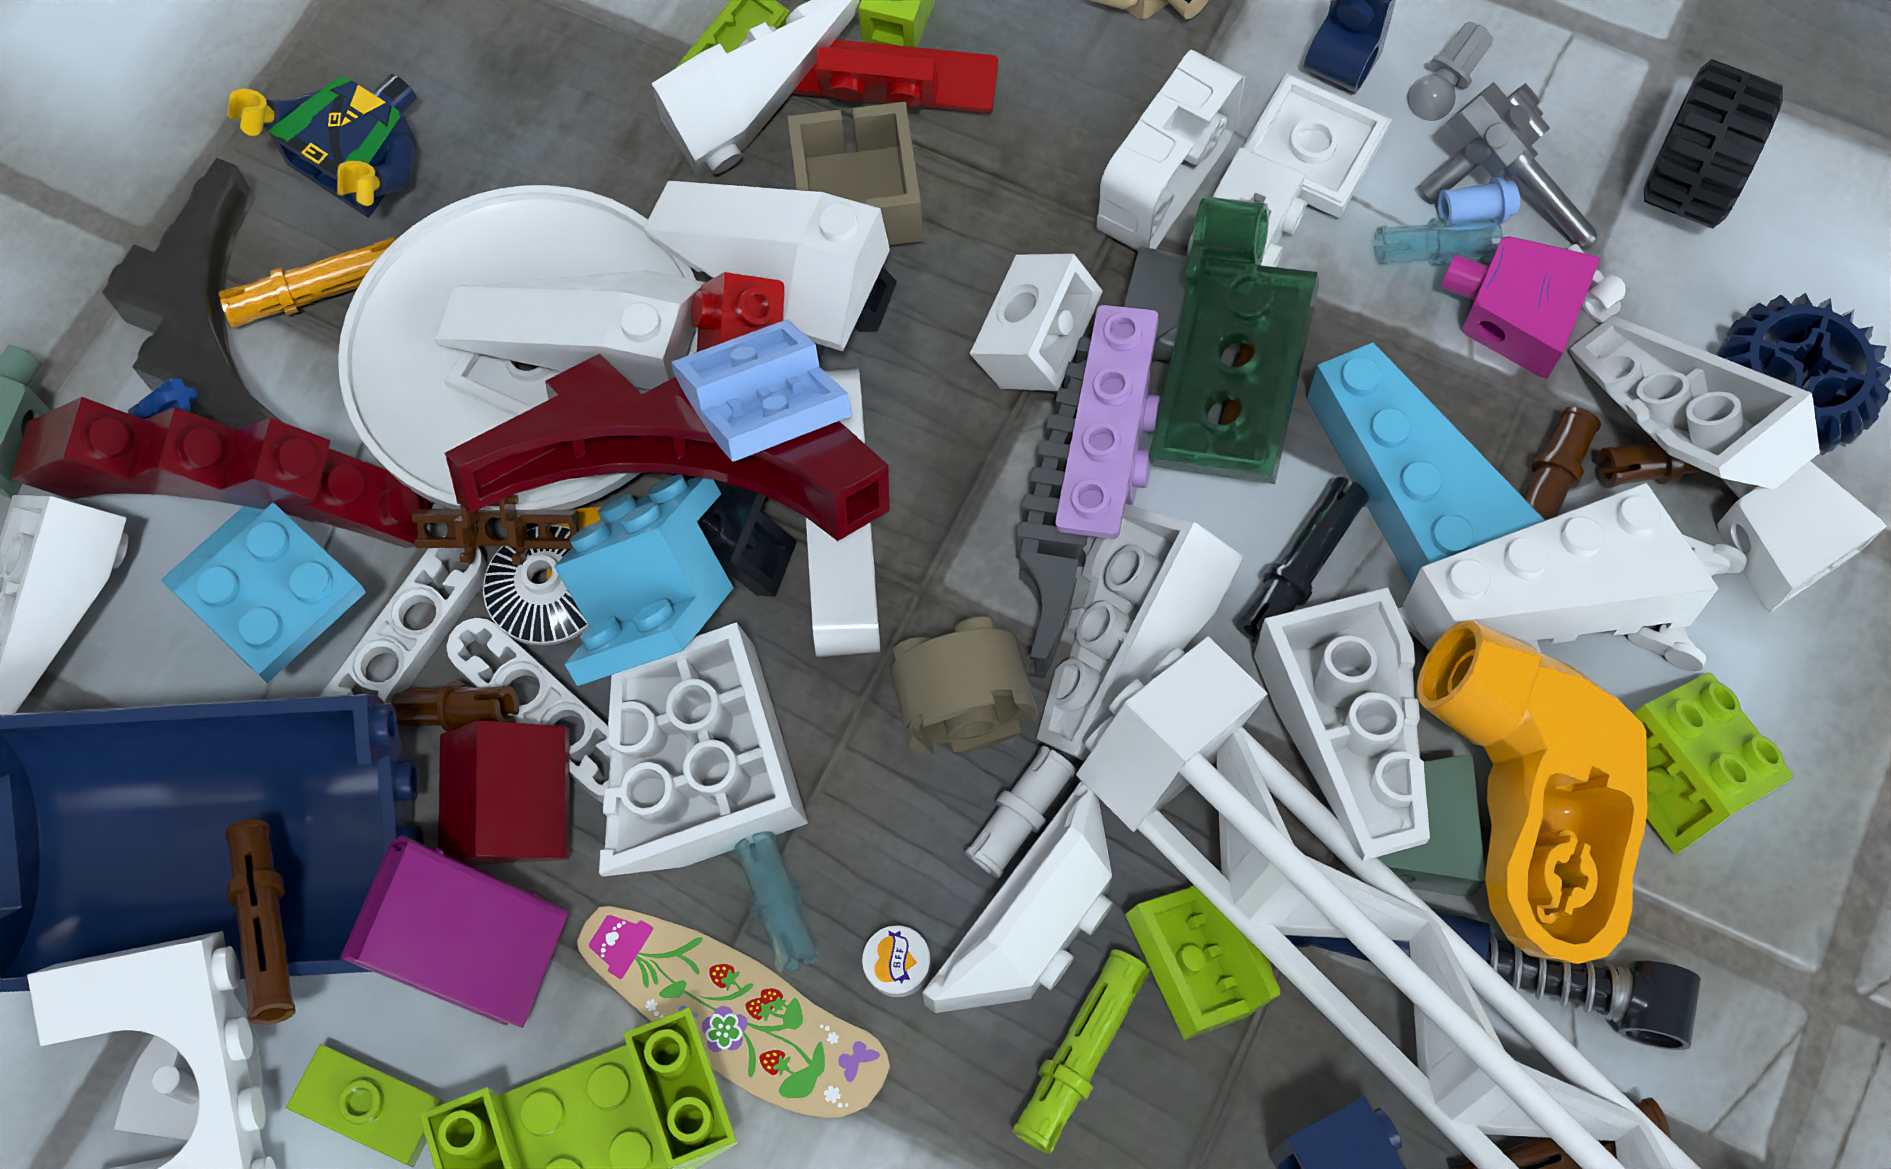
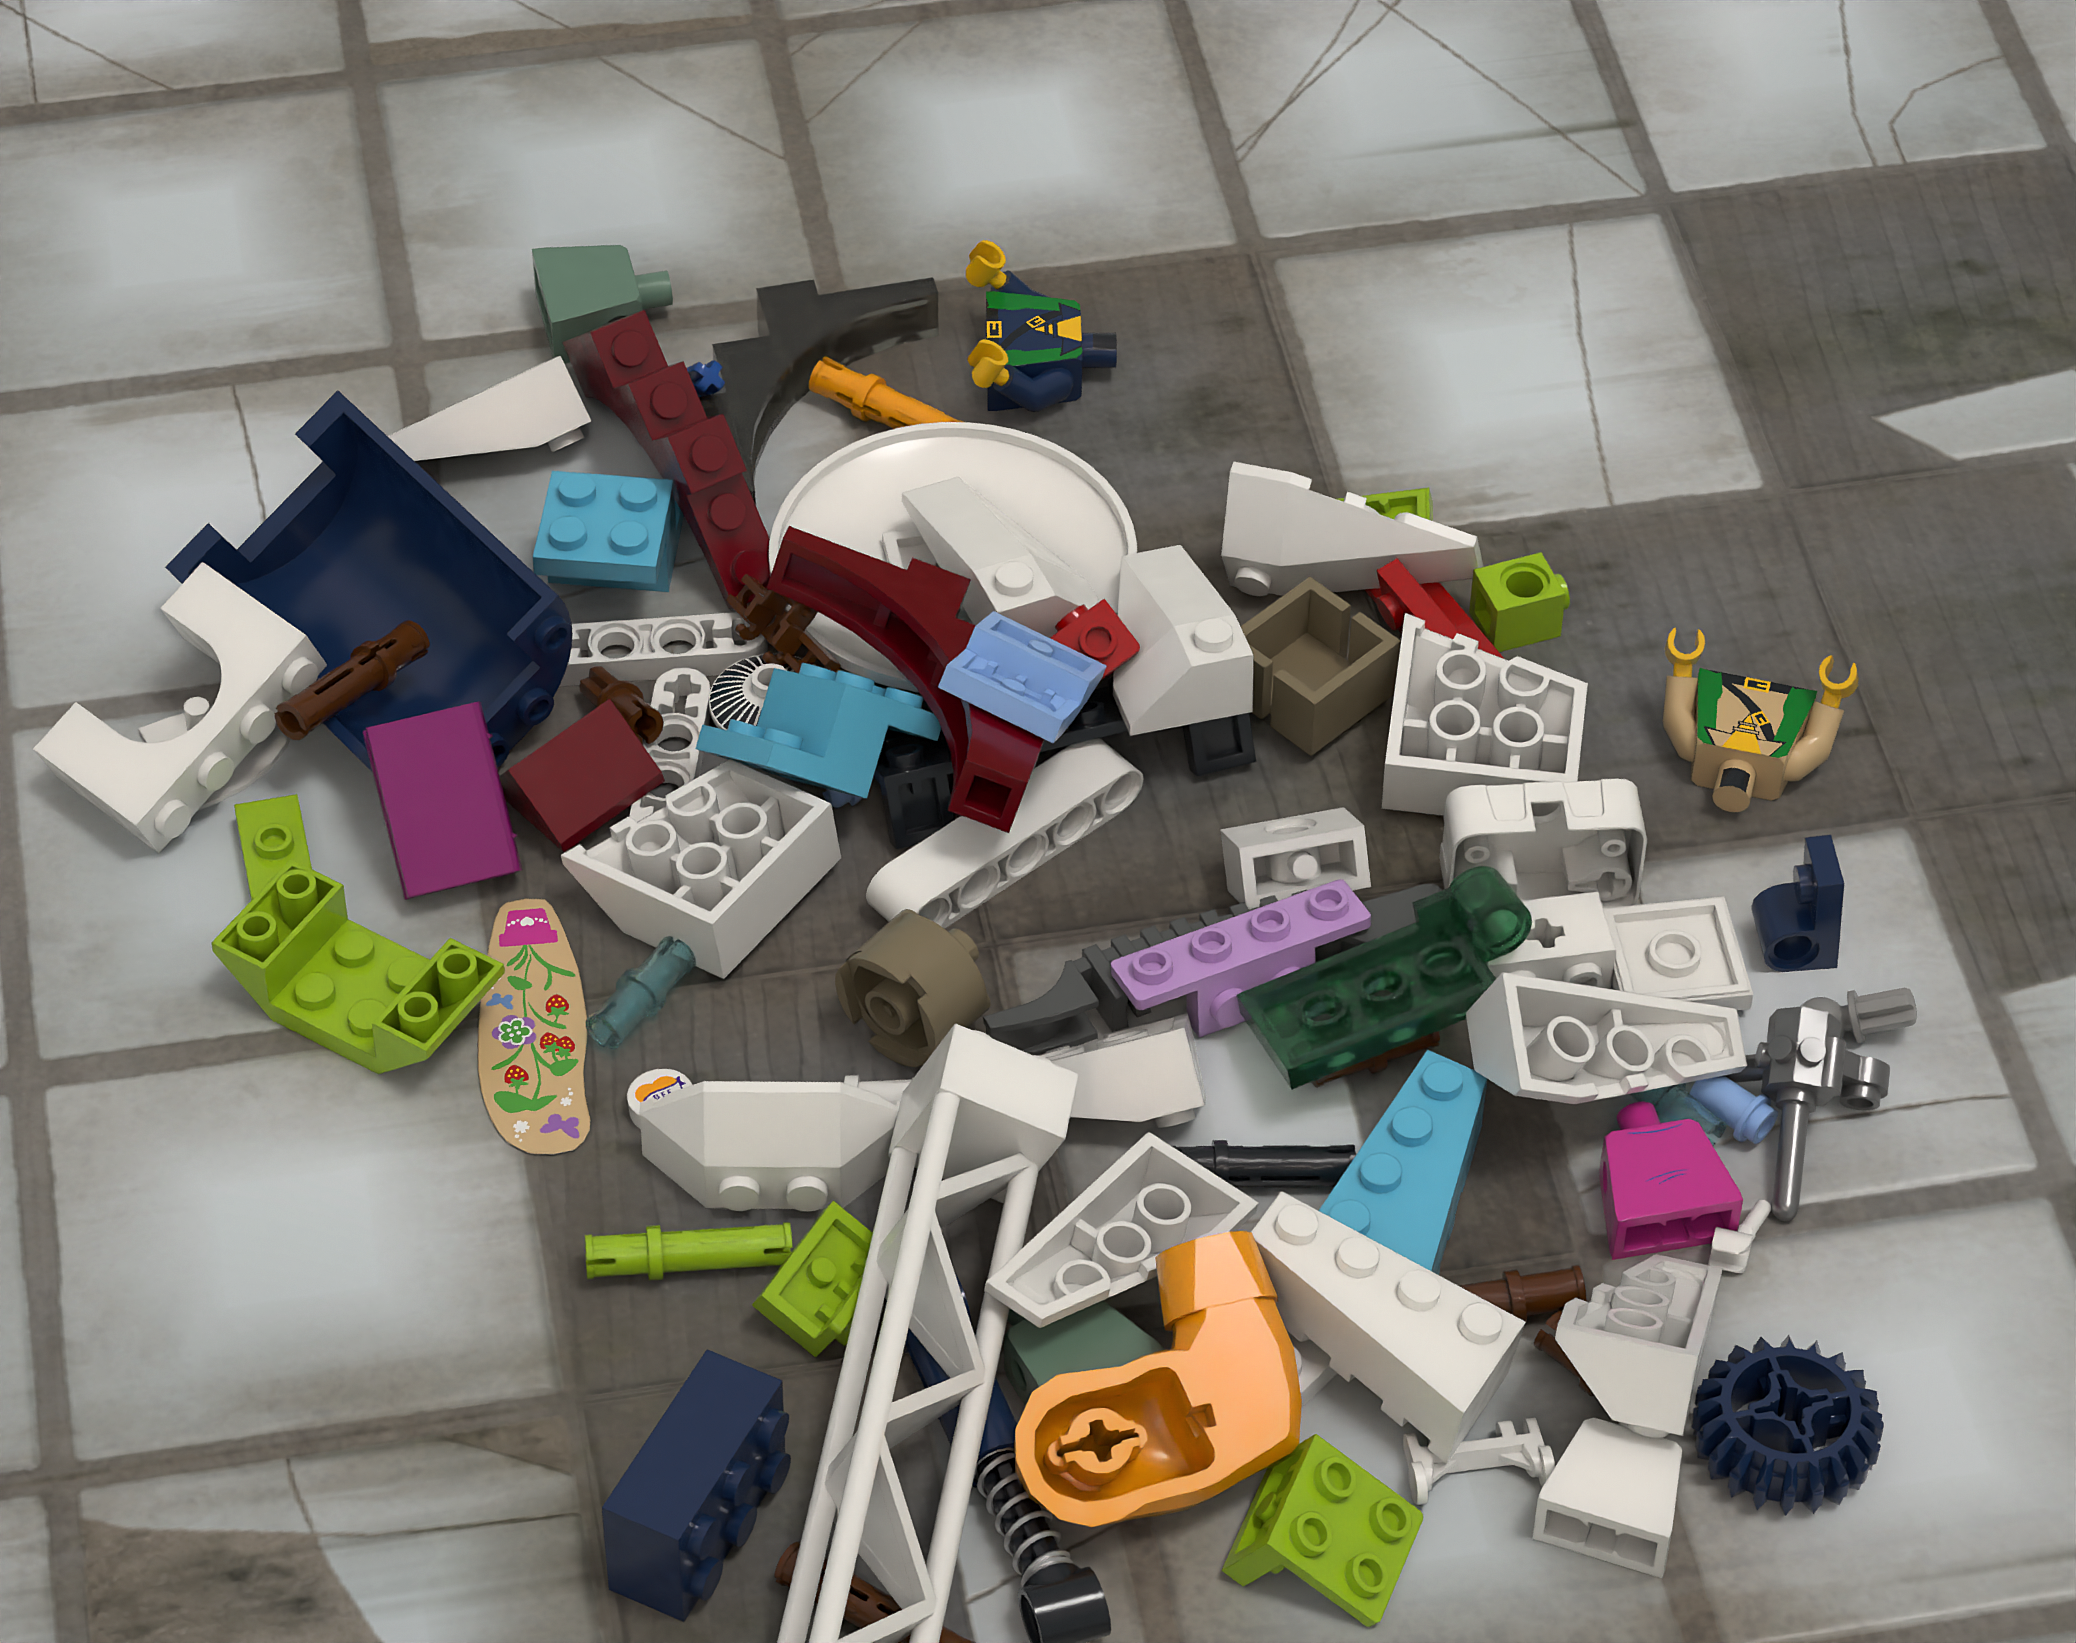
camera: 50 degrees right, 20 degrees down
(1020, 113) = (1476, 722): none -> white wedge
(1411, 260) = (1596, 1041): none -> white wedge
(1713, 143) = (1940, 1211): black tyre -> none

